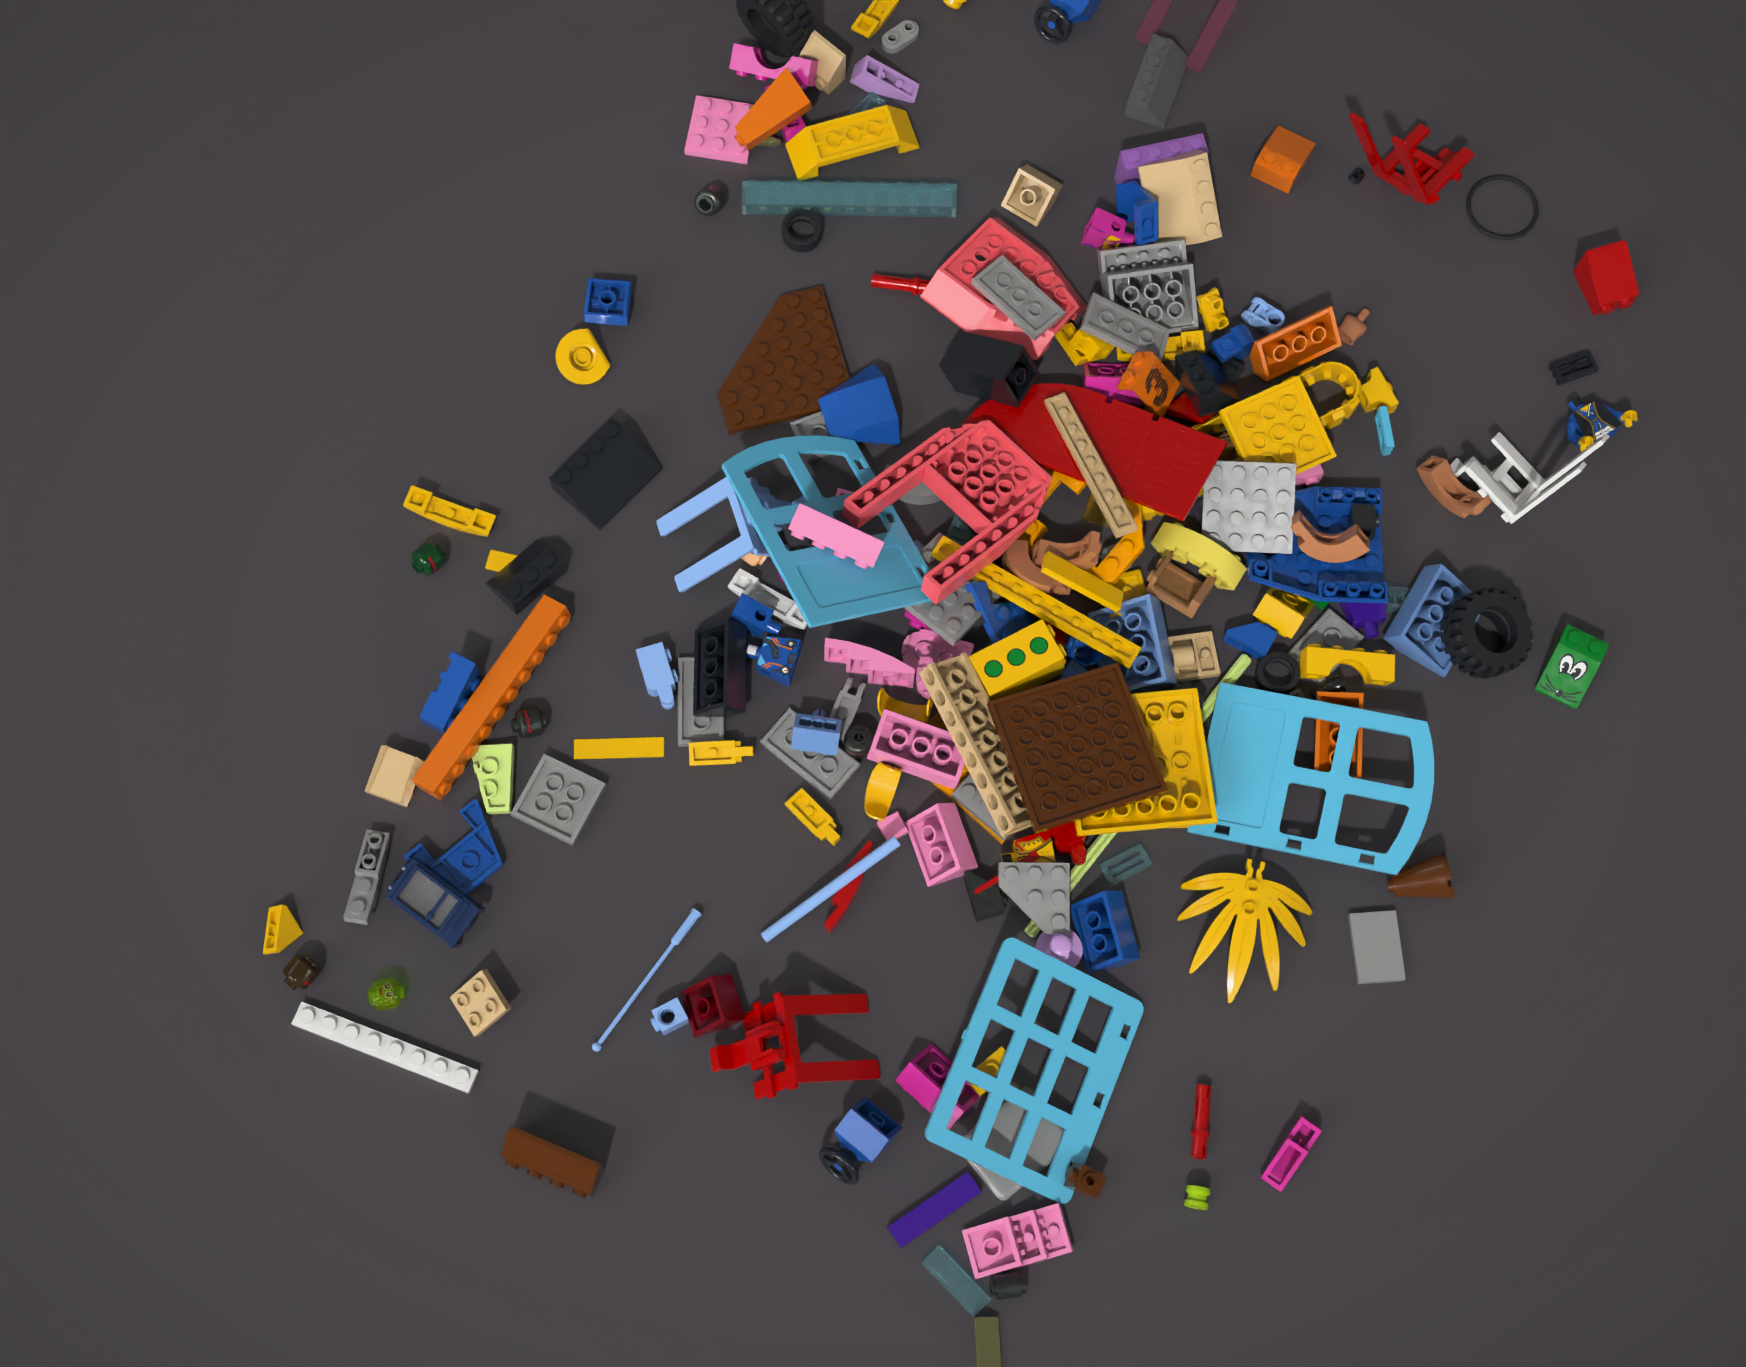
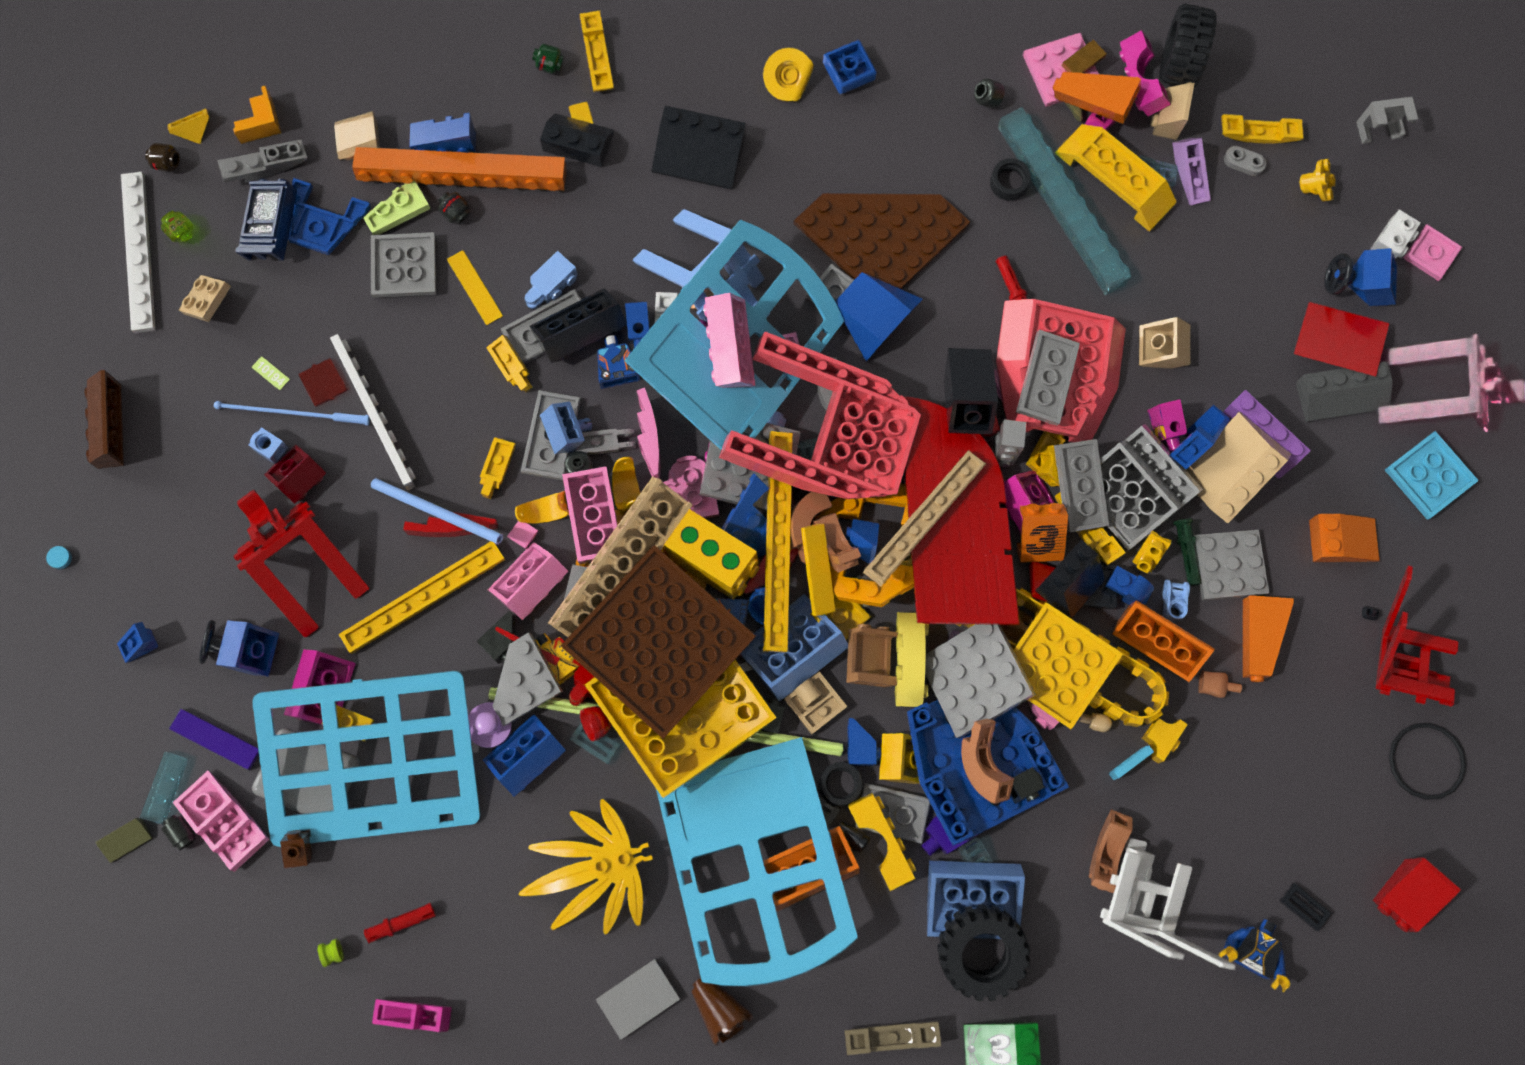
camera: 60 degrees right, 5 degrees up
(320, 855) = (262, 124): none -> light orange panel
(592, 981) = (270, 373): none -> yellowish green sticker
(631, 936) = (322, 382): none -> clear red piece
(665, 1276) = (59, 557): none -> medium azure tile
(683, 900) = (378, 419): none -> white plate
(727, 105) = (1084, 58): none -> pearl gold tile
(798, 1238) = (136, 642): none -> blue slope
(903, 949) = (421, 597): none -> yellow plate
(1055, 362) = (1009, 442): none -> light grey arch
(1074, 527) = (864, 537): none -> blue slope
(1110, 56) = (1342, 339): none -> red sticker
(1112, 850) = (594, 722): none -> red helmet
(1215, 281) = (1186, 541): none -> clear green pin
(1255, 257) = (1231, 565): none -> light grey plate
(1266, 61) = (1431, 475): none -> medium azure plate
(1331, 266) = (1263, 633): none -> orange slope
(1337, 435) = (1097, 721): none -> tan cylinder
(1518, 749) = (892, 1037): none -> dark tan slope

